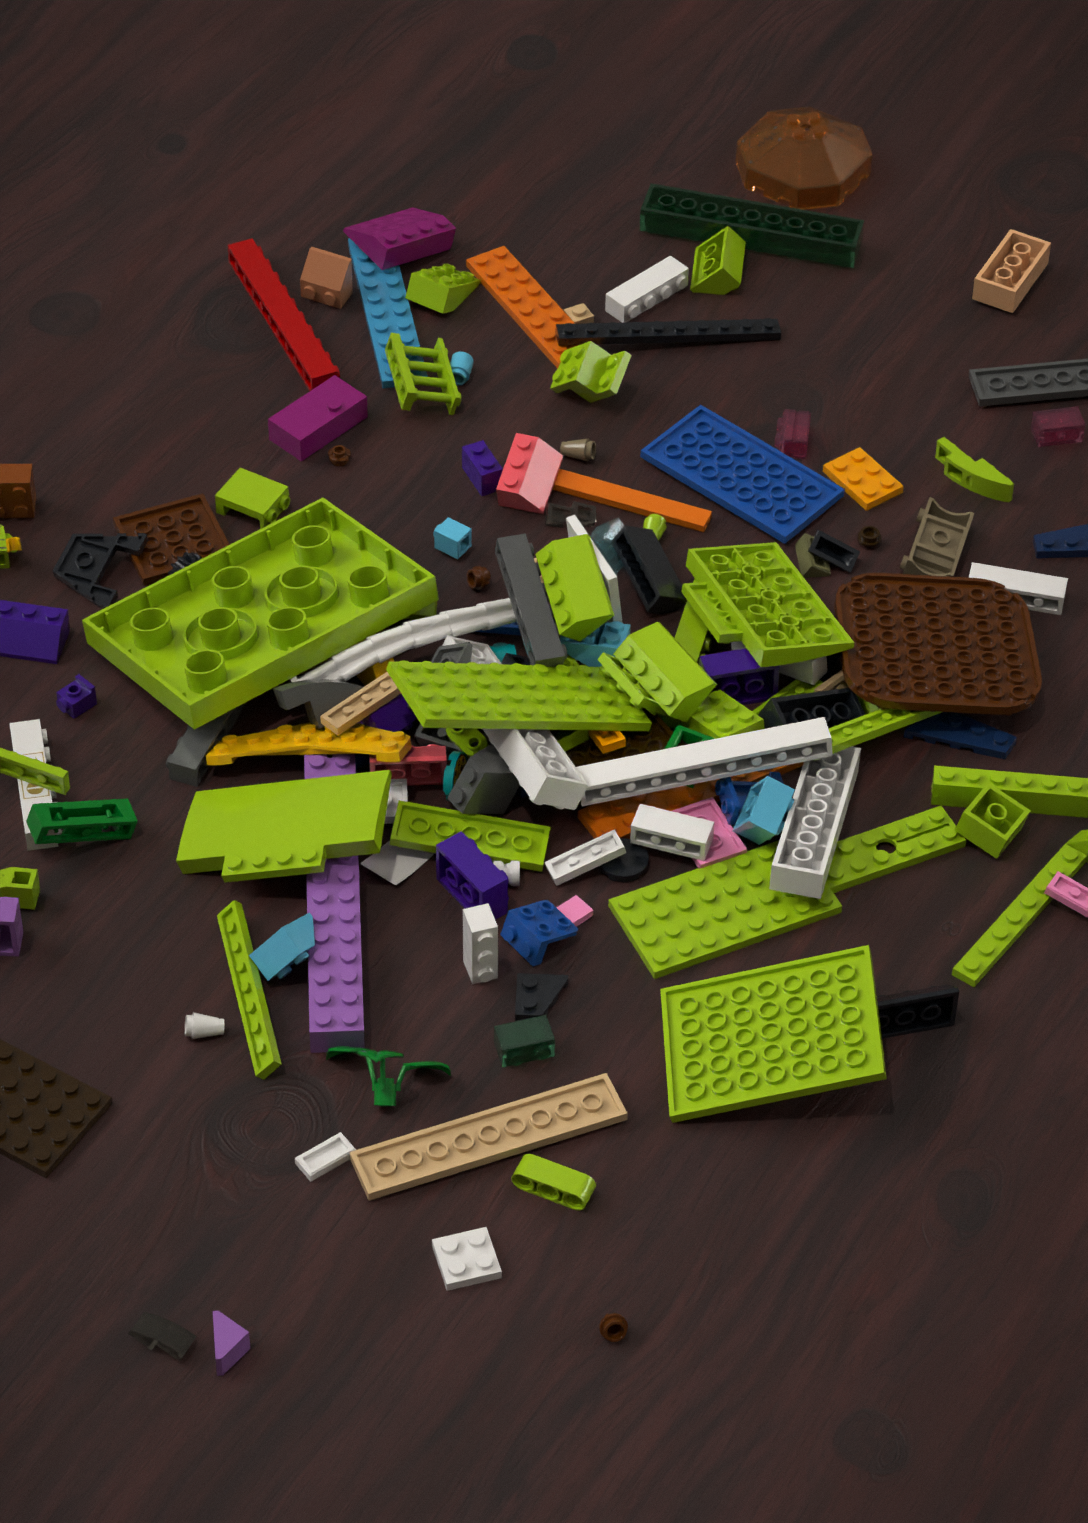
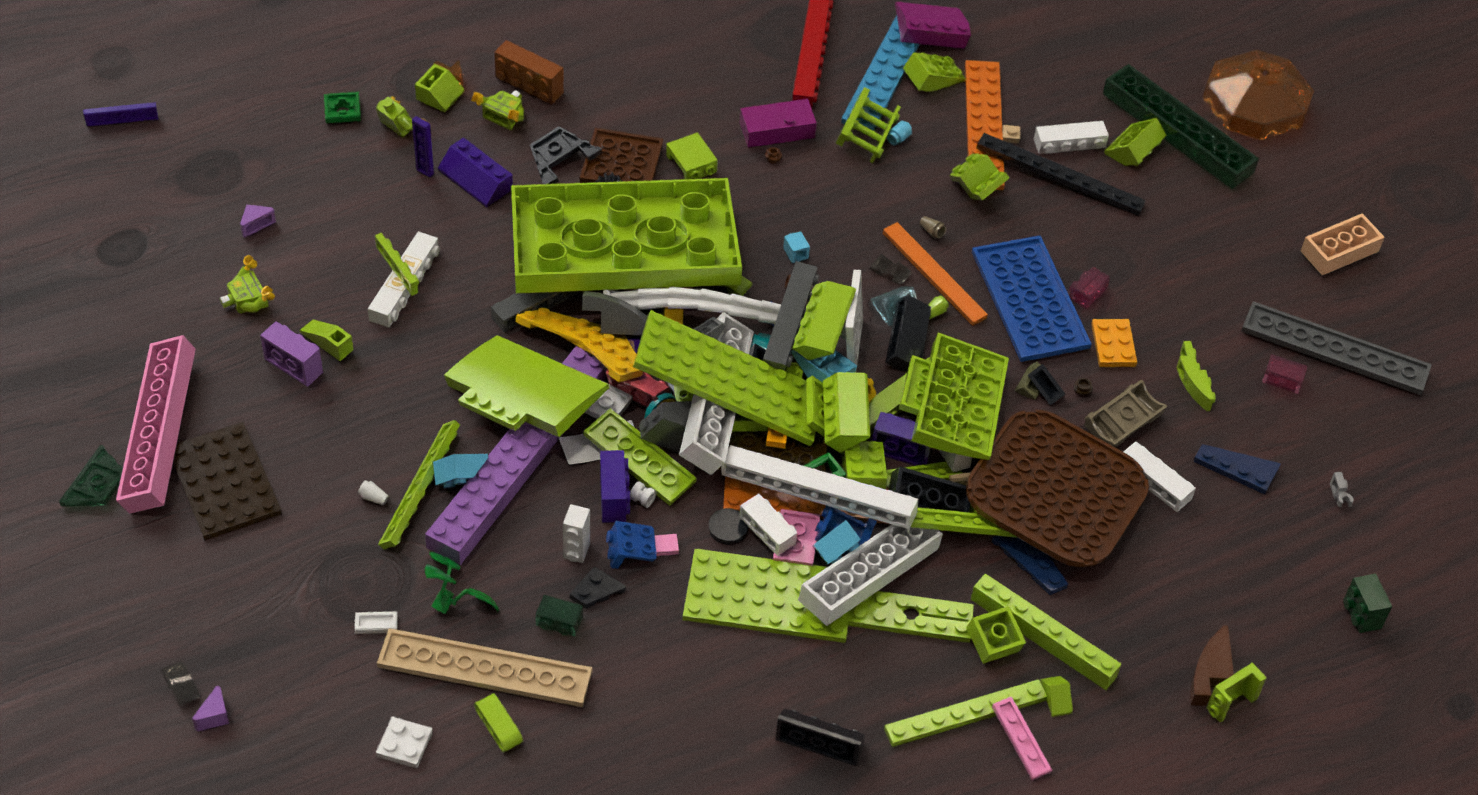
camera: 30 degrees right, 5 degrees up
(76, 697) = (475, 235): dark purple brick -> none
(81, 821) = (405, 318): green brick -> none
(327, 278) = (859, 31): nougat slope -> none
(360, 704) = (622, 331): tan plate -> none
(481, 467) = (856, 208): dark purple brick -> none
(528, 474) = (881, 227): coral slope -> none
(585, 857) = (700, 511): white plate -> none
(772, 1034) = (714, 703): lime plate -> none

